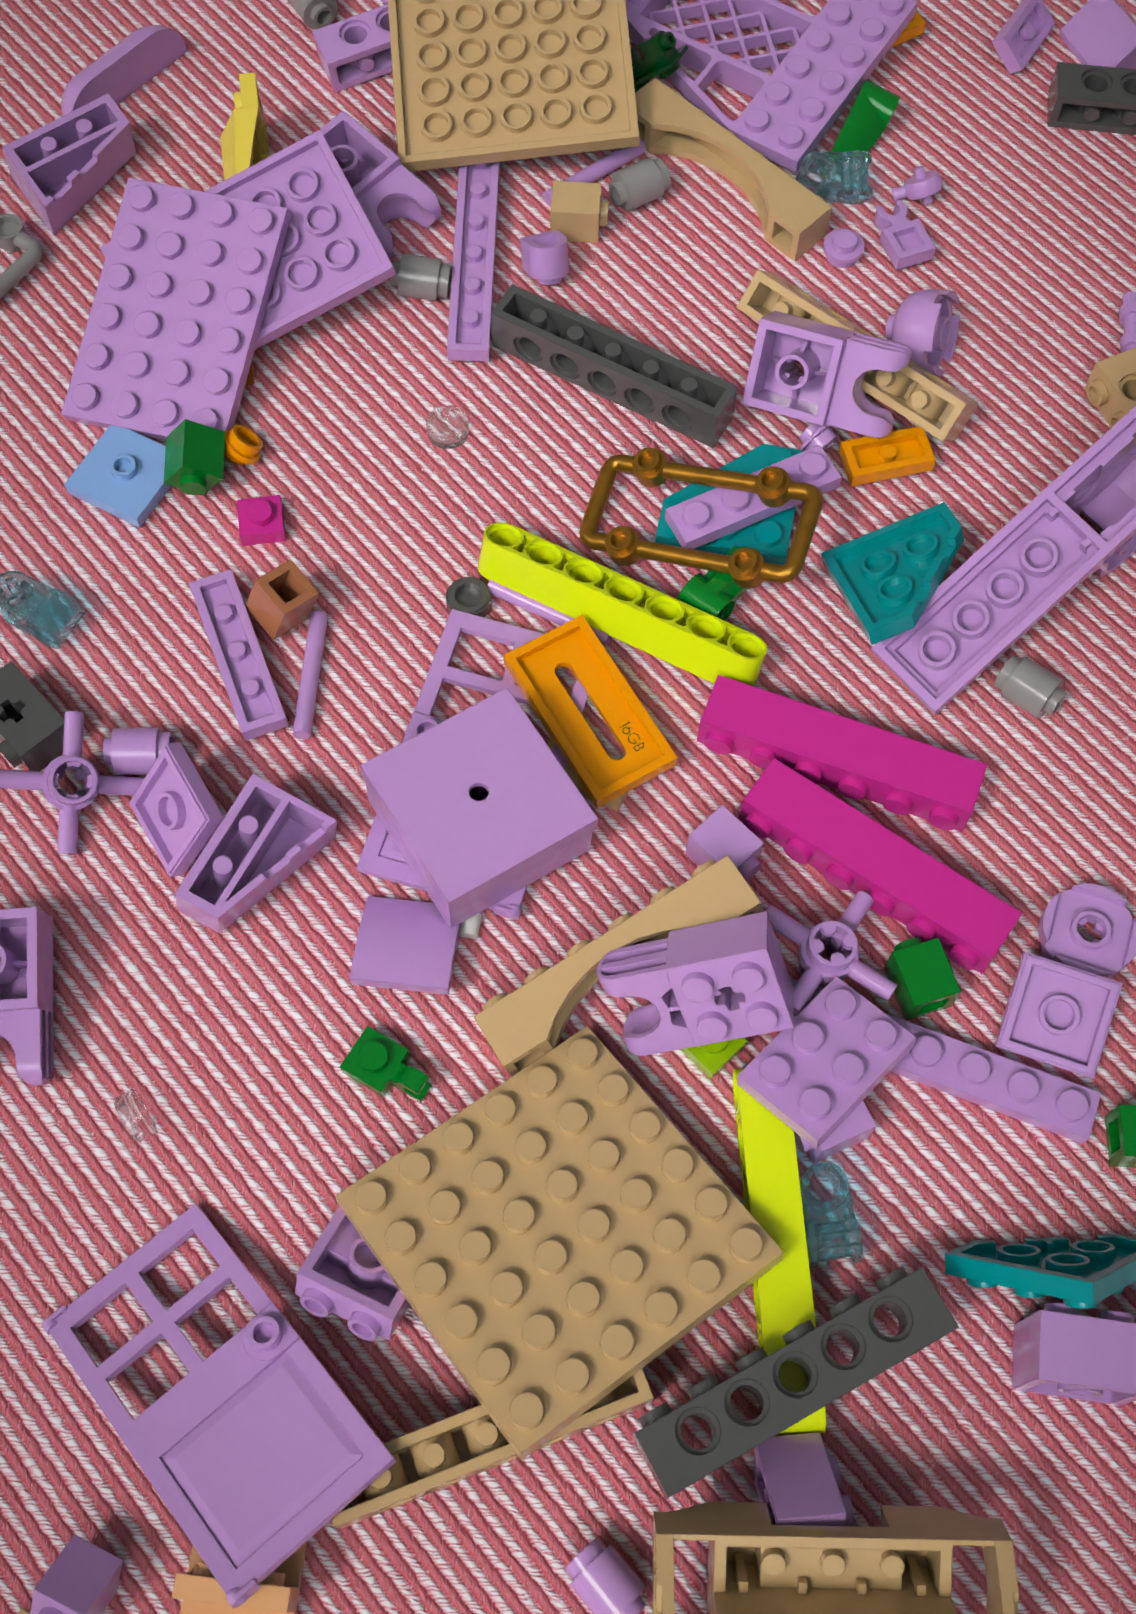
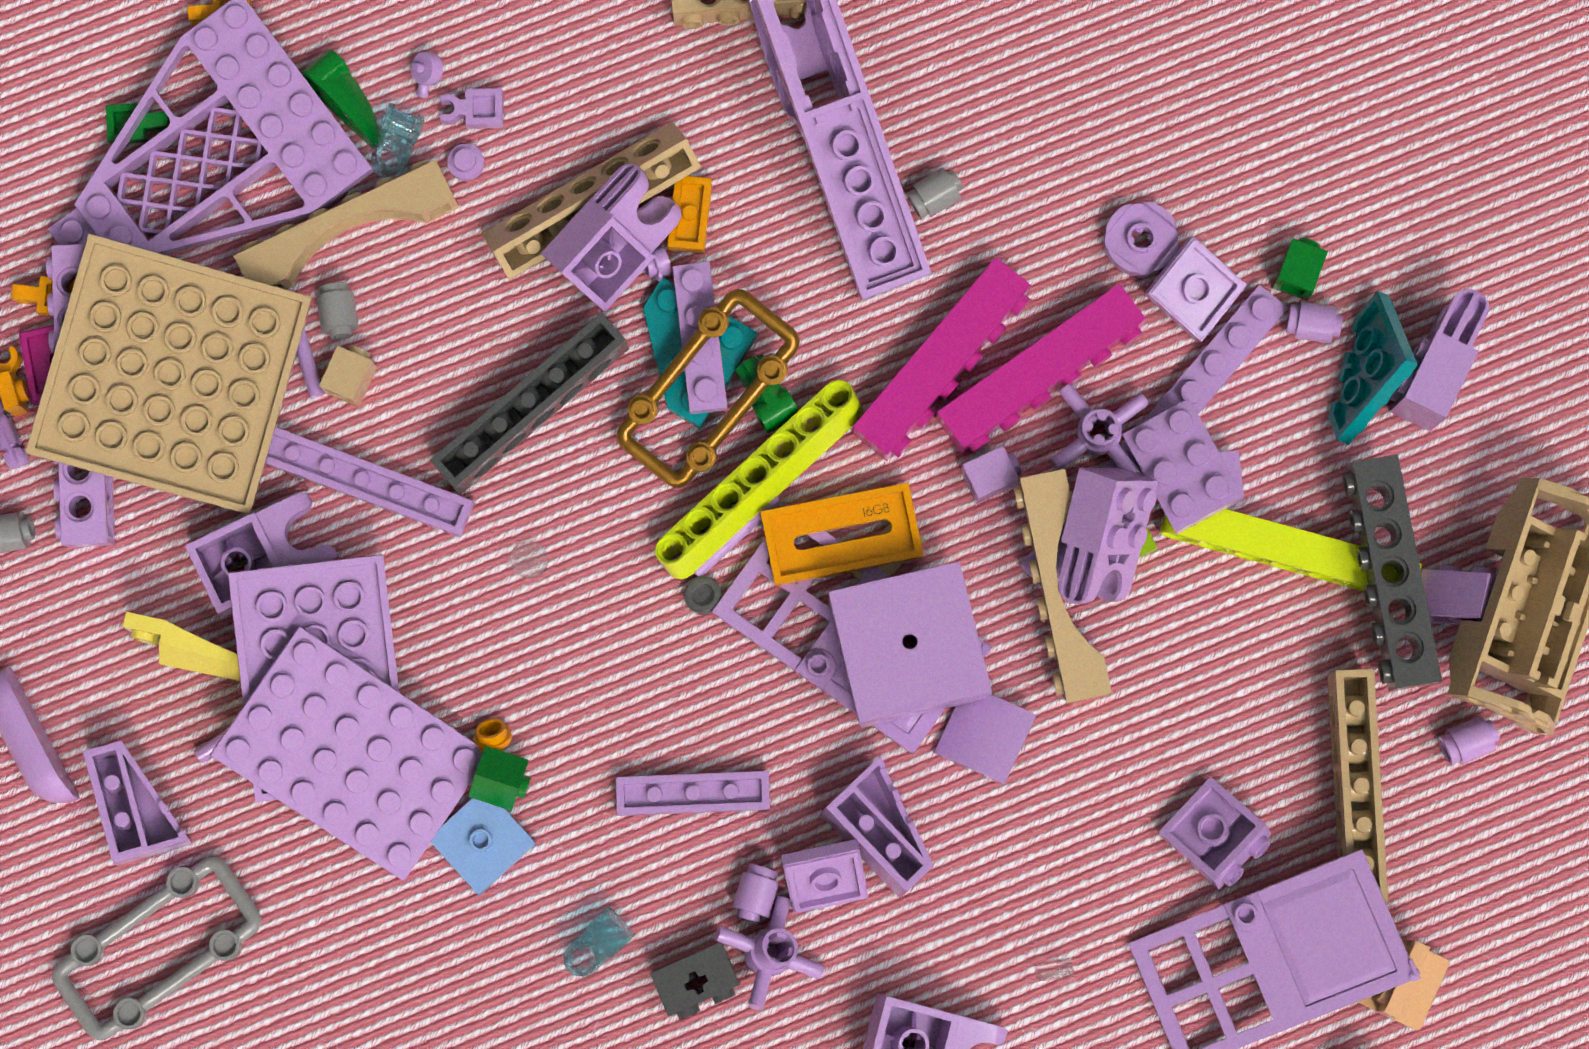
camera: 65 degrees left, 15 degrees up
(261, 520) = (568, 740): dark pink plate -> none
(282, 599) = (664, 743): nougat brick -> none
(310, 675) = (727, 741): lavender bar -> none
(381, 1063) = (1070, 783): green plate -> none
(422, 277) = (370, 531): light grey brick -> none
(545, 256) = (390, 419): lavender plate -> none
(557, 1237) = (1239, 695): tan plate -> none
(659, 58) = (219, 246): dark green hinge -> none
(830, 1218) = (1289, 506): clear light blue piece -> none
(895, 570) = (806, 254): teal plate -> none
(922, 977) = (1136, 373): green brick -> none
(926, 327) = (586, 135): lavender cylinder -> none
(1086, 1178) = (1314, 322): none -> lavender brick

